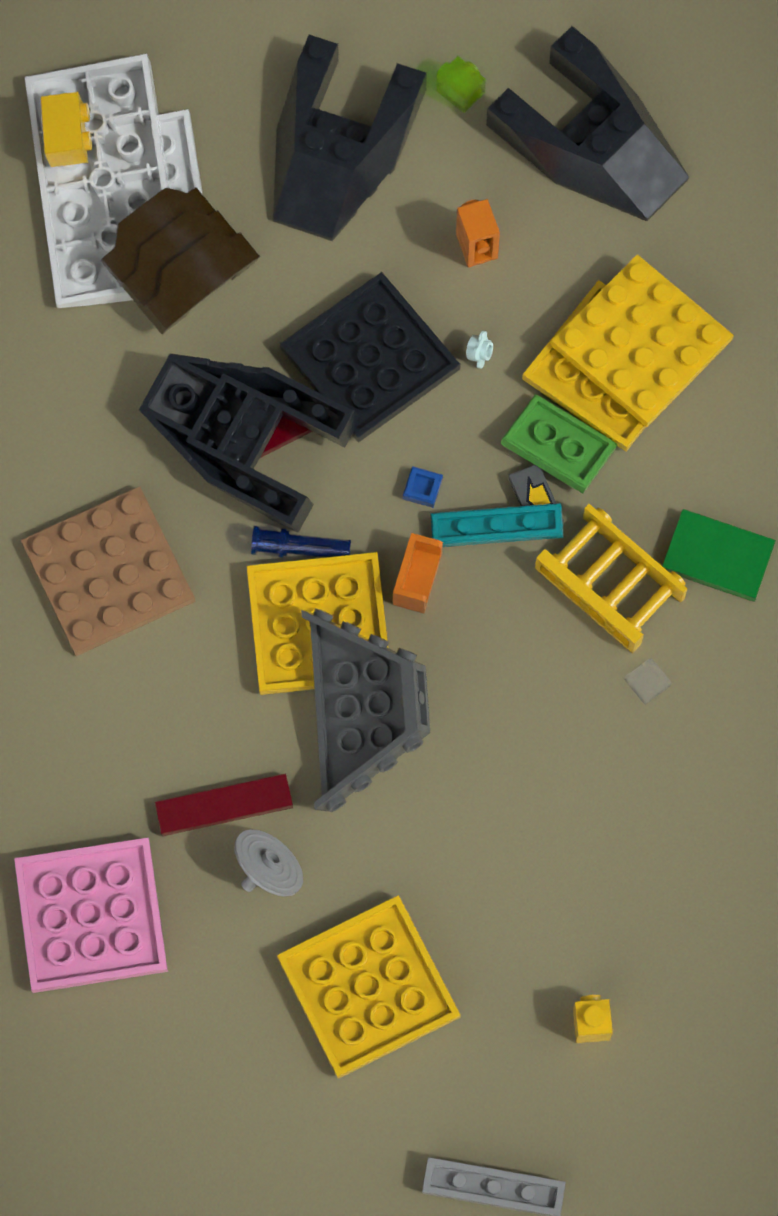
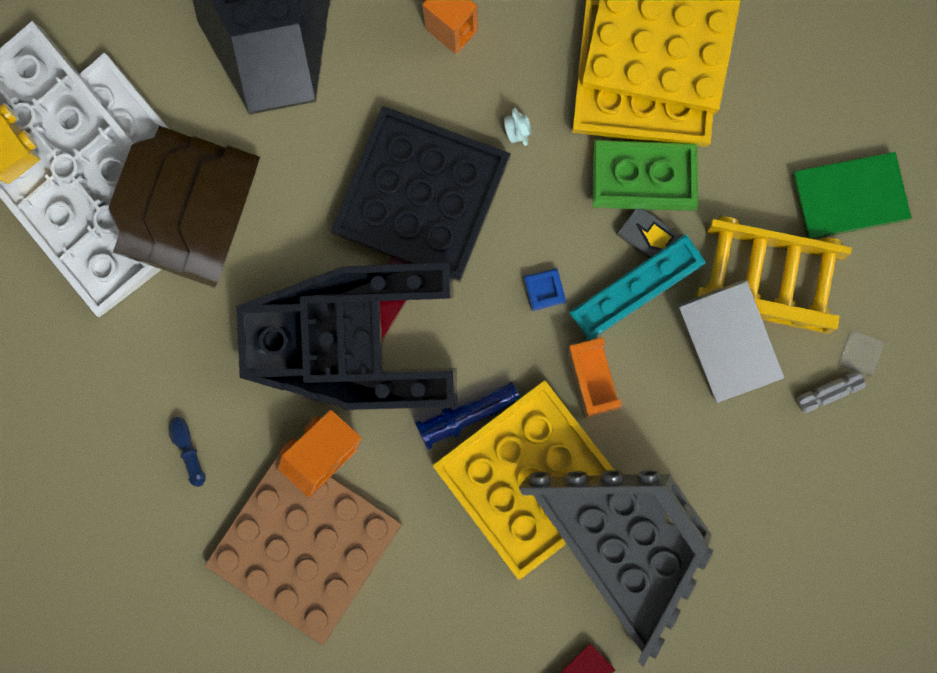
camera: 25 degrees left, 10 degrees up
(63, 435) = (181, 437): none -> dark blue piece
(164, 503) = (318, 453): none -> orange brick
(544, 605) = (731, 341): none -> light grey tile
(603, 695) = (831, 391): none -> light grey axle

